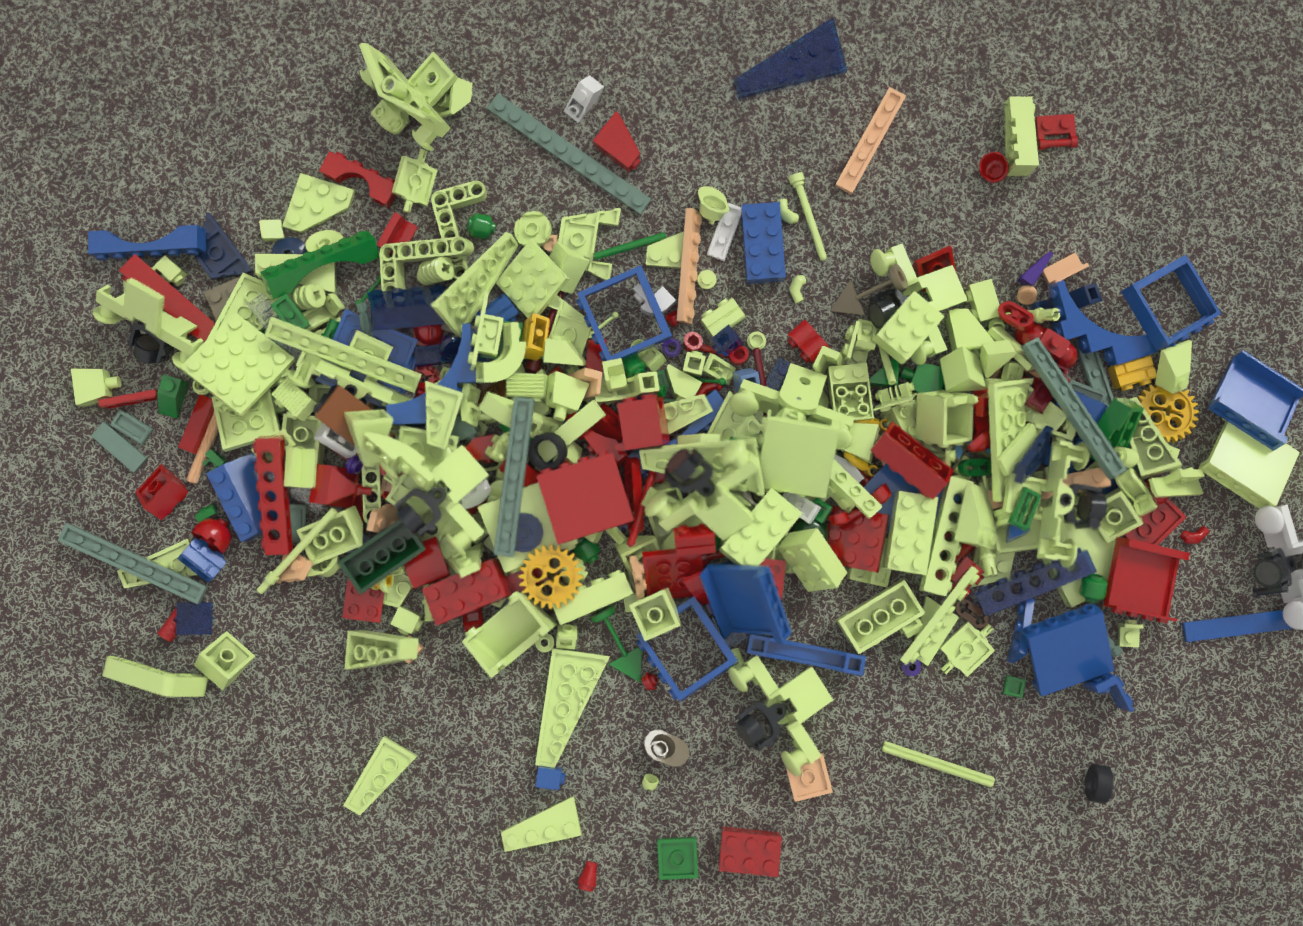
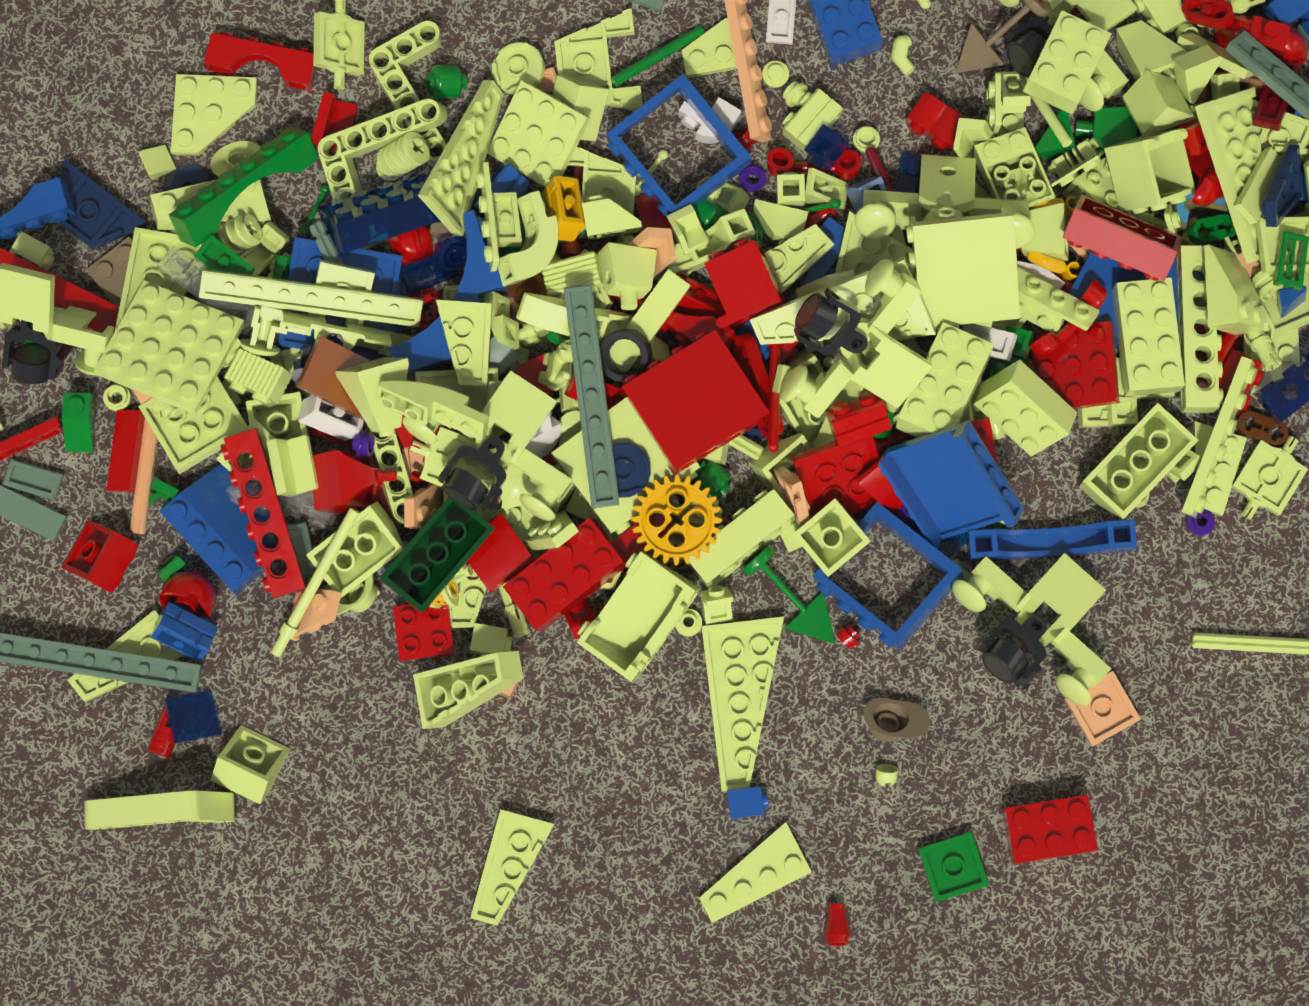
camera: 15 degrees left, 5 degrees down
(716, 296) = (794, 93): none -> yellowish green plate

